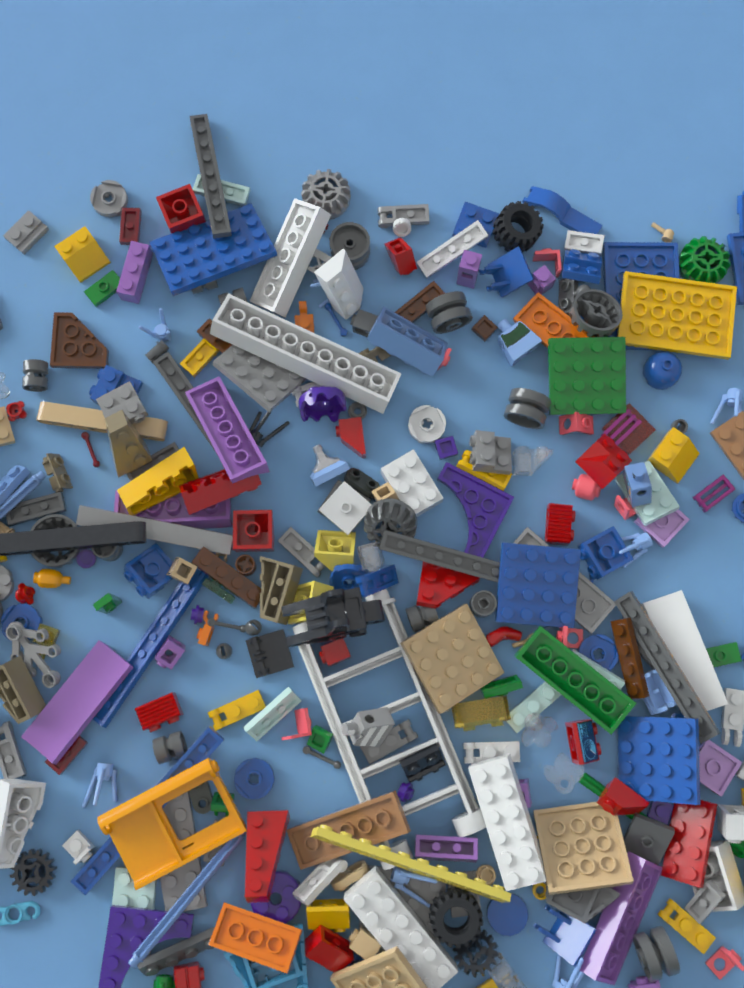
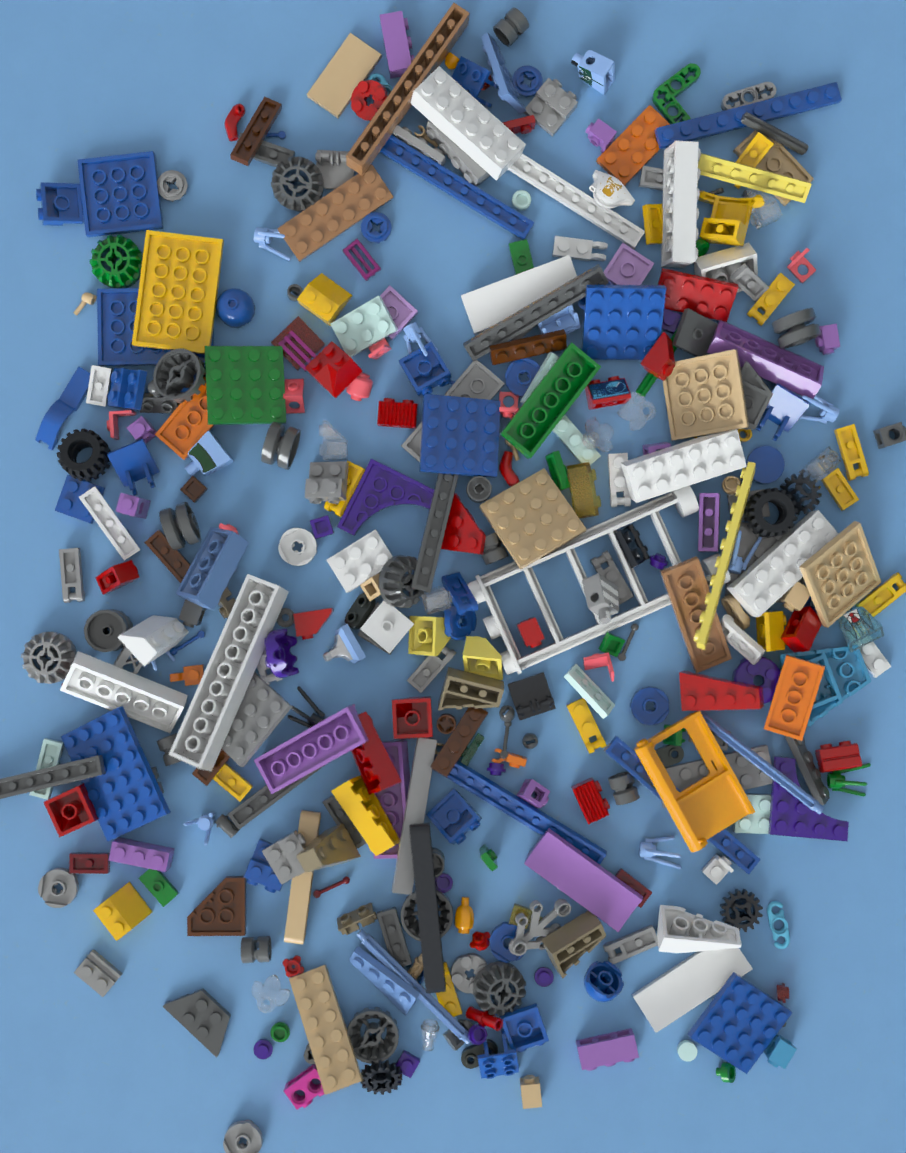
camera: 90 degrees left, 10 degrees up
(181, 570) = (454, 786): tan brick -> none
(334, 616) = (499, 634): black piece -> none
(402, 227) = (85, 576): white tile -> none
(637, 480) = (356, 336): medium blue torso -> none

